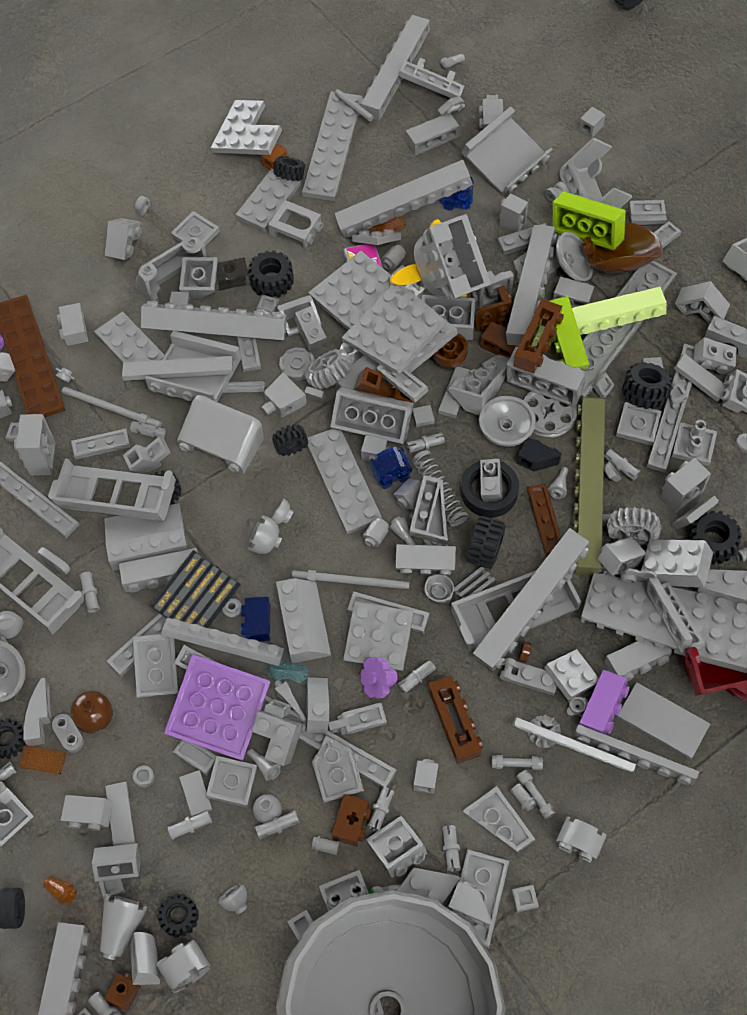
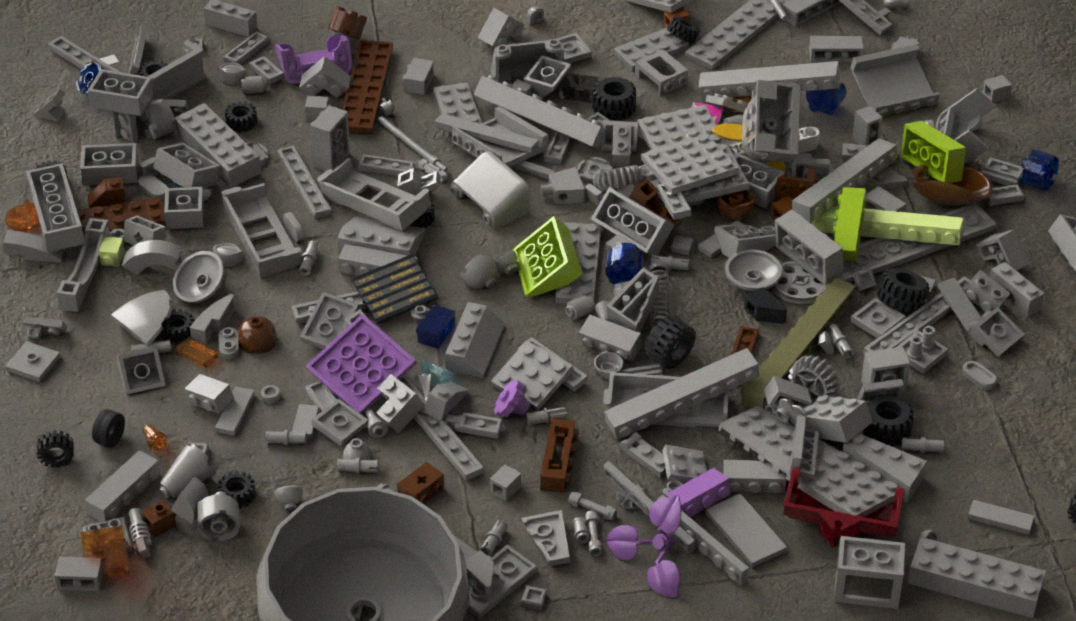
camera: 25 degrees right, 20 degrees down
(116, 862) = (210, 433): light grey brick -> none
(222, 641) = (399, 329): light grey plate -> none
(278, 708) = (411, 384): light grey tile -> none
(290, 440) = (547, 207): black tyre -> none
(312, 575) = (507, 318): light grey bar -> none
(318, 494) = (547, 259): none -> lime slope
(336, 770) = (431, 446): light grey tile -> none
(380, 809) = (451, 489): light grey pin -> none
(397, 847) = (454, 515): light grey plate -> none
(452, 105) = (866, 30): light grey hinge -> none
(484, 508) = (710, 298): black tyre -> none
(491, 480) = (707, 307): light grey slope -> none
(525, 651) = (654, 434): reddish brown tile -> none
(551, 316) = (814, 205): reddish brown brick -> none
(558, 488) = (767, 336): light grey cone -> none
(572, 257) = (898, 176): light grey dish -> none
(581, 839) = (608, 571): light grey brick -> none
(609, 766) = (623, 542): none -> medium lavender plant
(677, 394) = (929, 308): light grey tile -> none
(680, 198) = (1039, 169): none -> clear blue brick

